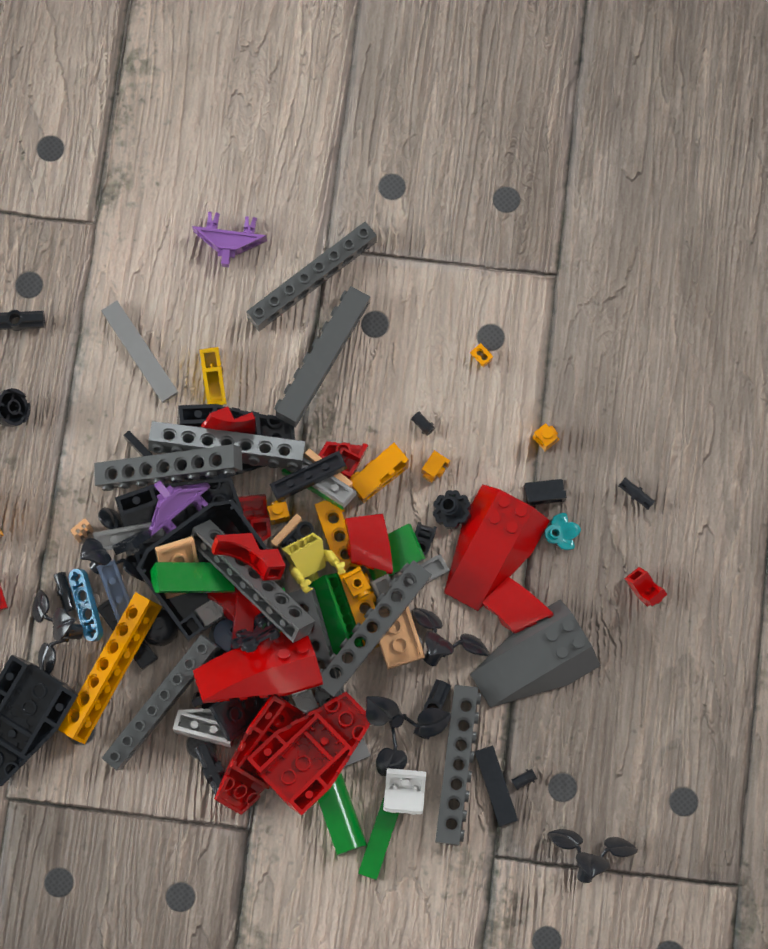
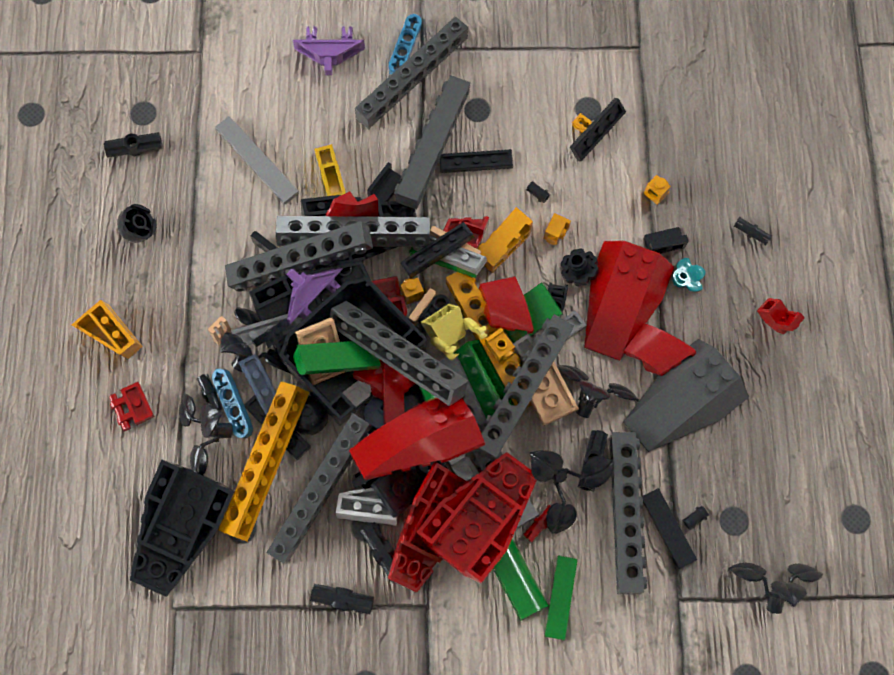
camera: 10 degrees left, 5 degrees down
(168, 811) = (342, 599): none -> black piece
(249, 641) = (414, 400): black plant -> none
(266, 396) = (385, 183): none -> black panel
(266, 562) = (385, 319): red arch -> none
(310, 243) = (405, 45): none -> dark azure beam
(365, 381) = (476, 161): none -> black tile
(367, 767) = (538, 525): none -> red pin
(404, 791) = (579, 545): white bracket -> none
(495, 363) = (597, 129): none -> black tile

